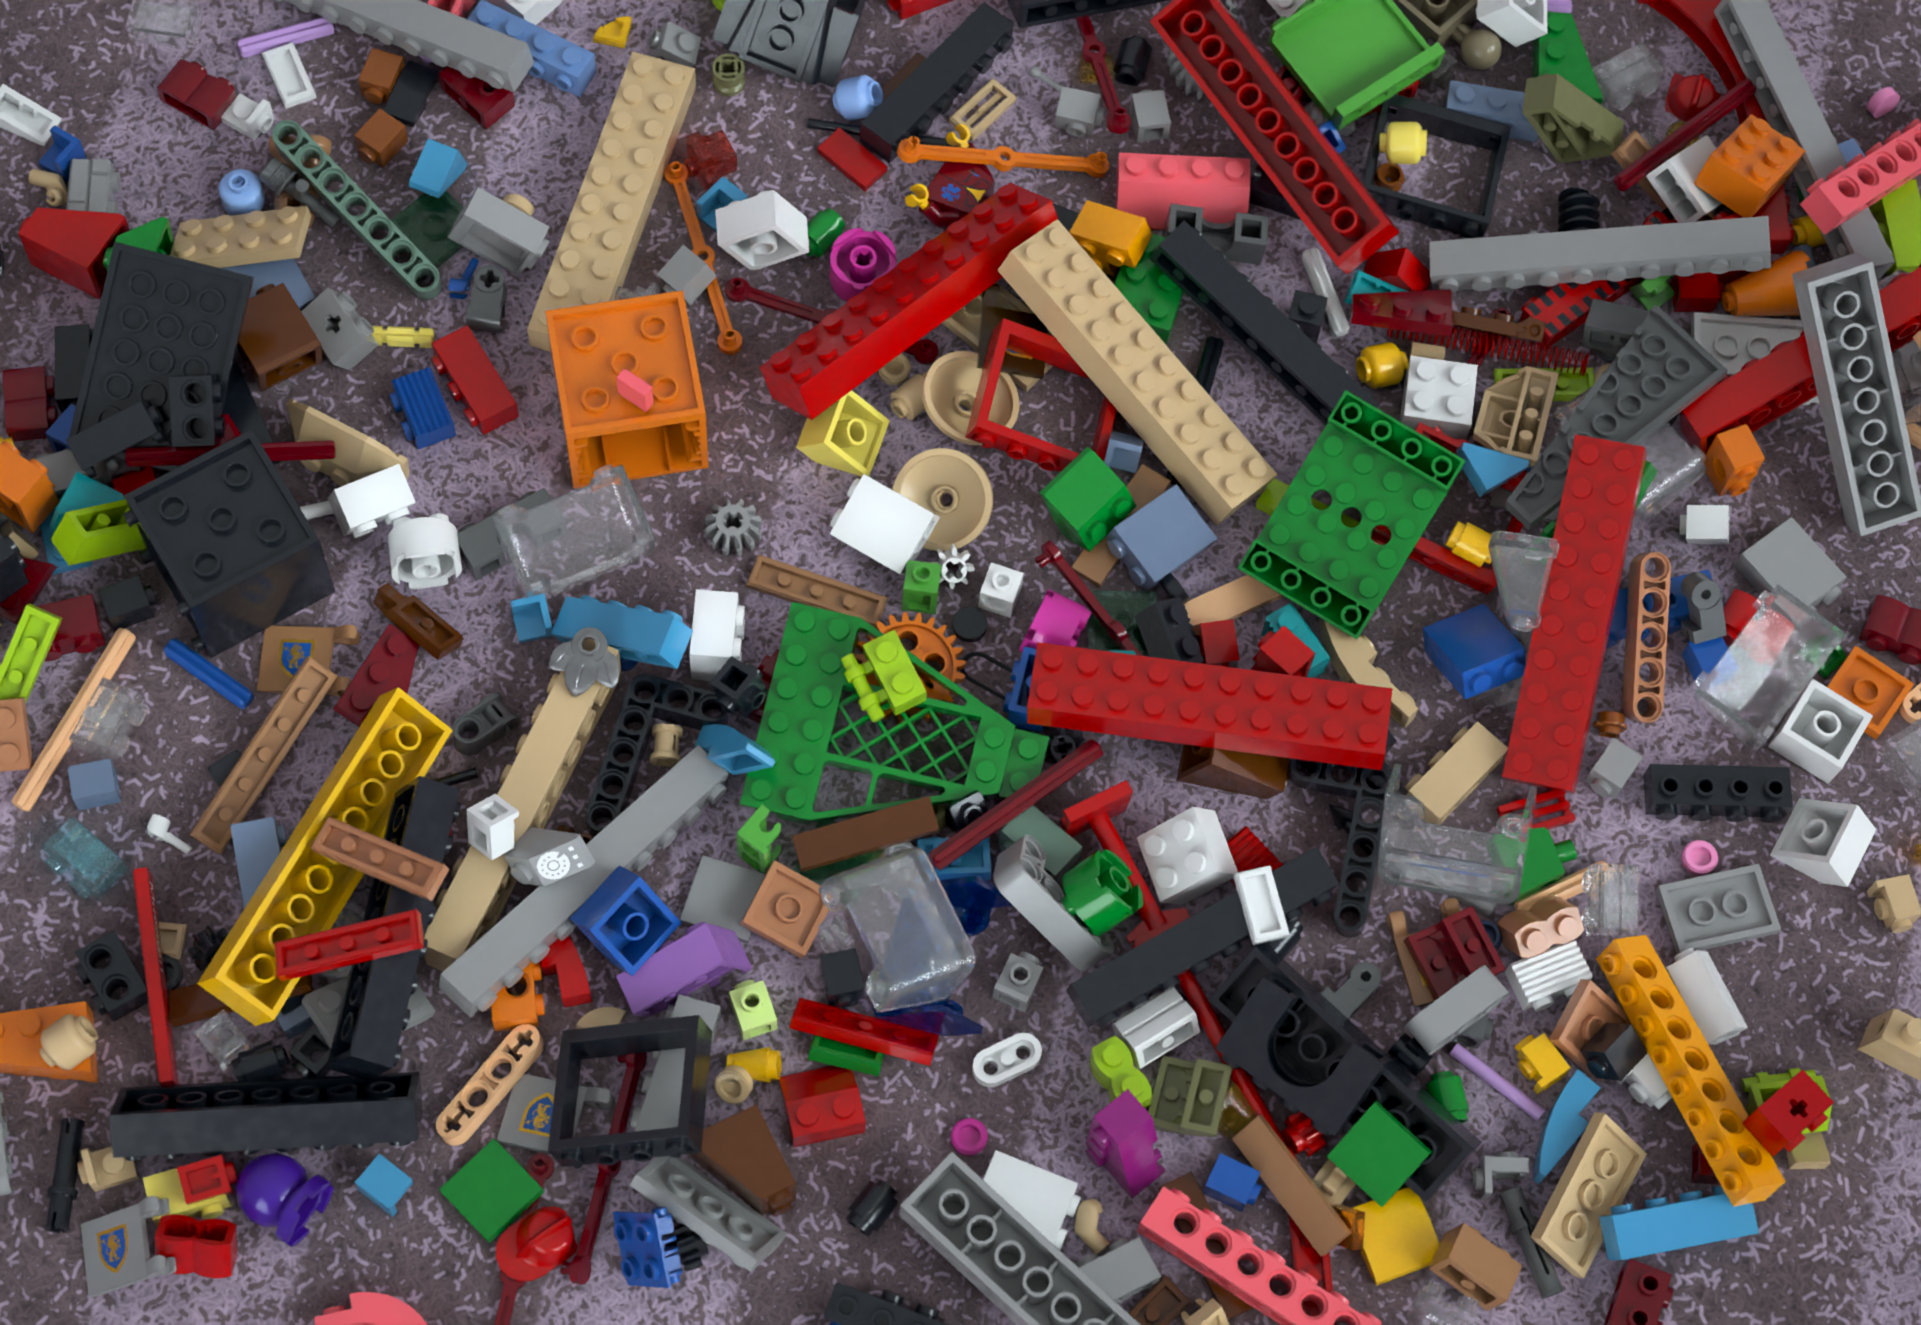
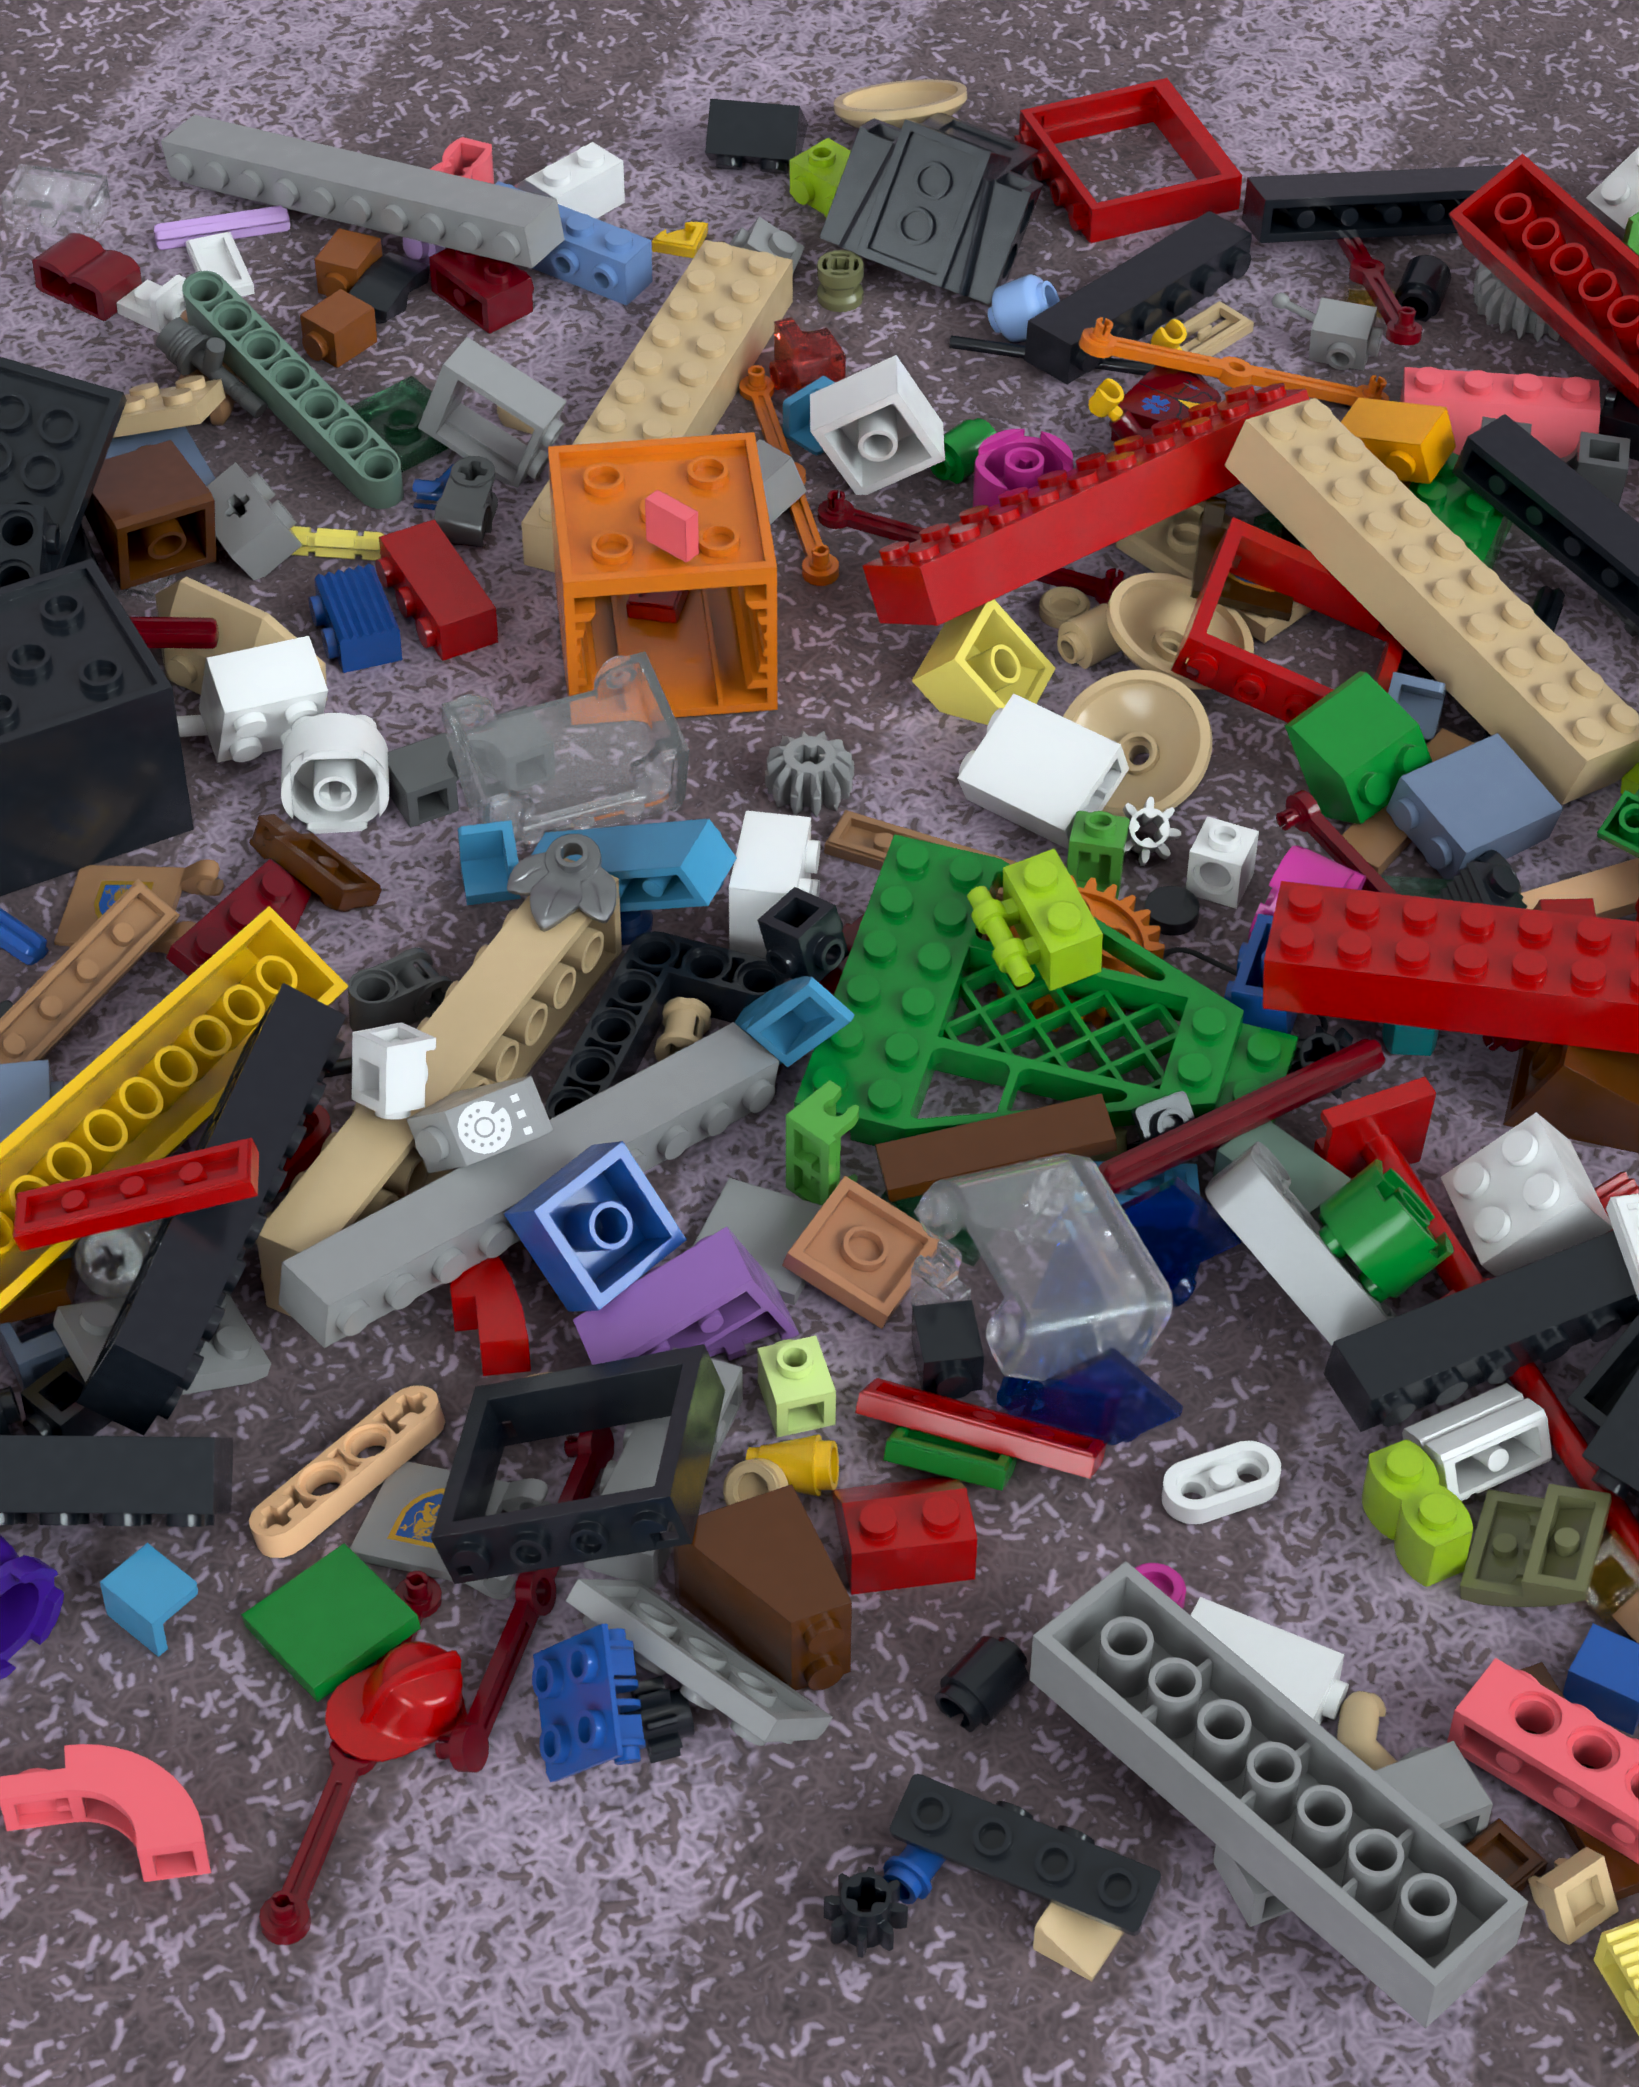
camera: 10 degrees right, 20 degrees down
(241, 192) = (129, 365): light blue head -> none
(380, 858) = (205, 1084): nougat tile -> none
(437, 168) = (413, 350): dark azure slope -> none
(511, 1010) = (406, 1347): orange brick -> none
(852, 159) = (1012, 380): red tile -> none
(1018, 992) = (1247, 1362): light grey brick -> none
(1123, 1142) = (1422, 1589): magenta wedge -> none
(1150, 115) = (1449, 340): light grey brick -> none

